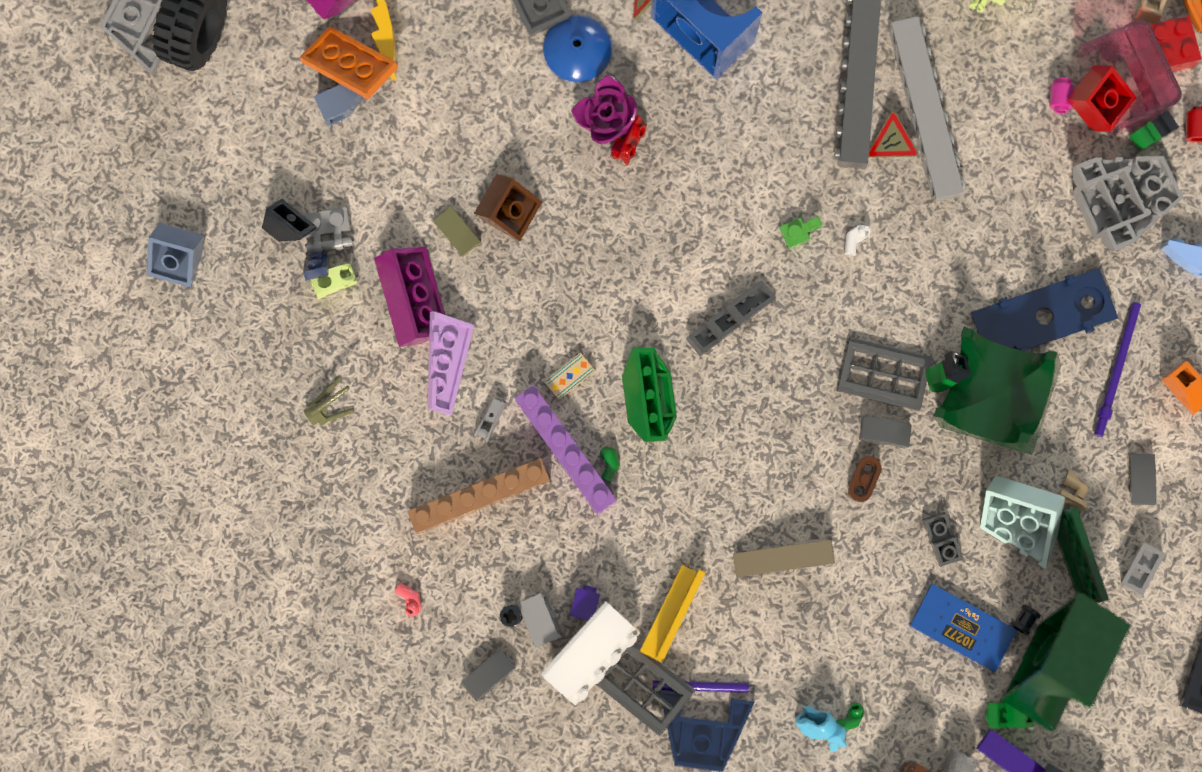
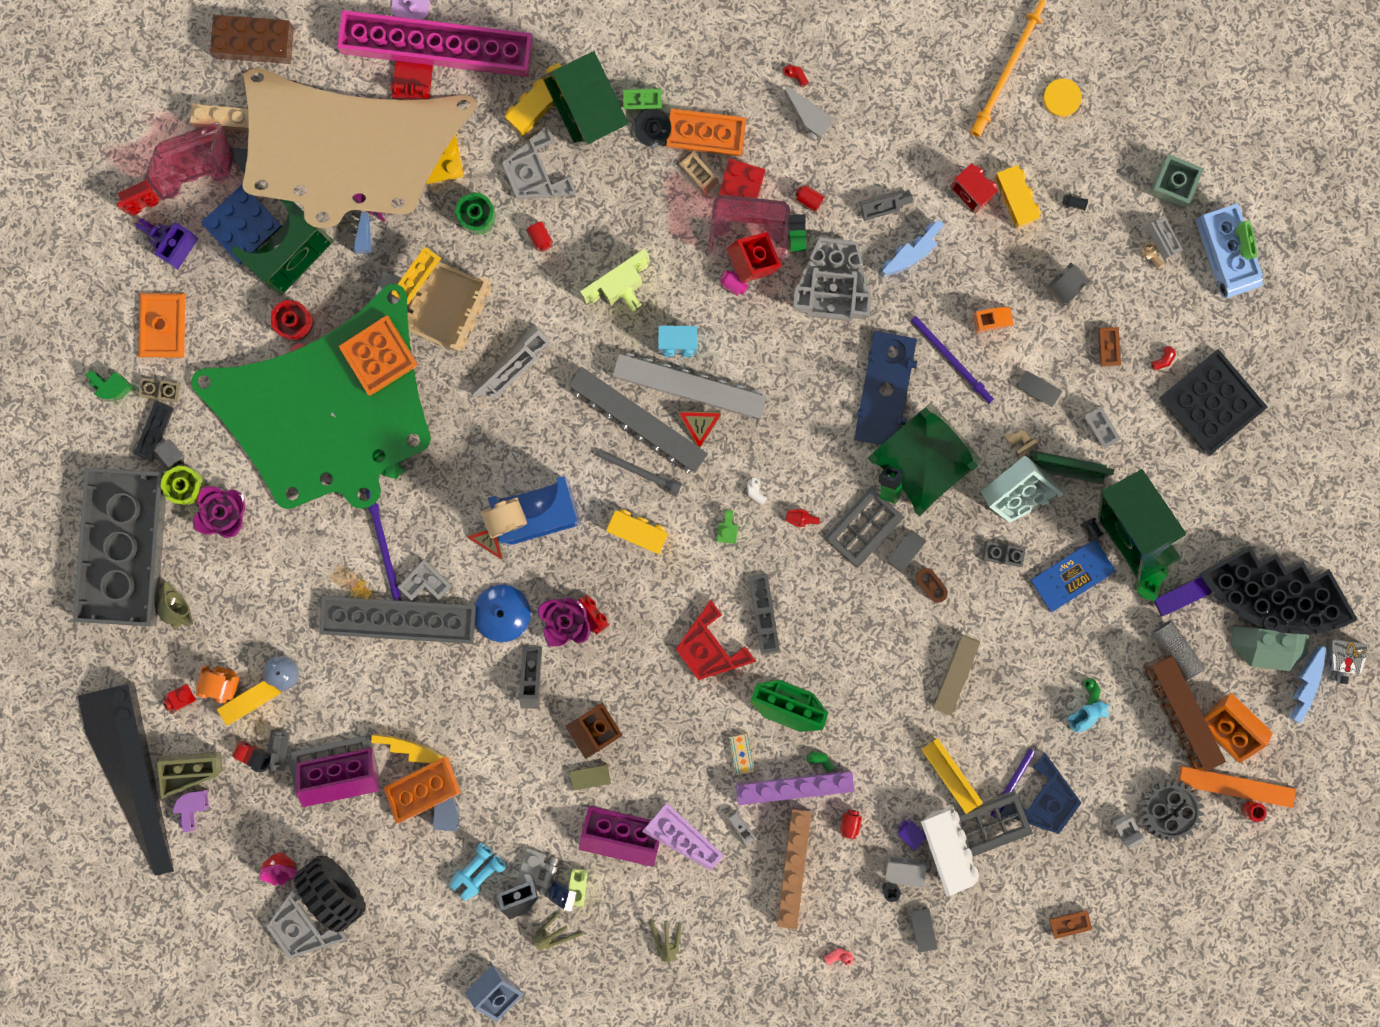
camera: 60 degrees left, 5 degrees up
(260, 275) = (544, 939): none -> olive plant
(281, 158) = (473, 884): none -> medium azure piece
(526, 112) = (530, 677): none -> dark grey slope
(559, 533) = (850, 824): none -> red brick
(655, 277) = (703, 651): none -> red wing
(743, 138) = (637, 531): none -> yellow brick
(810, 150) = (672, 486): none -> dark grey piece
(855, 300) = (801, 518): none -> red piece
(967, 68) = (677, 340): none -> medium azure brick

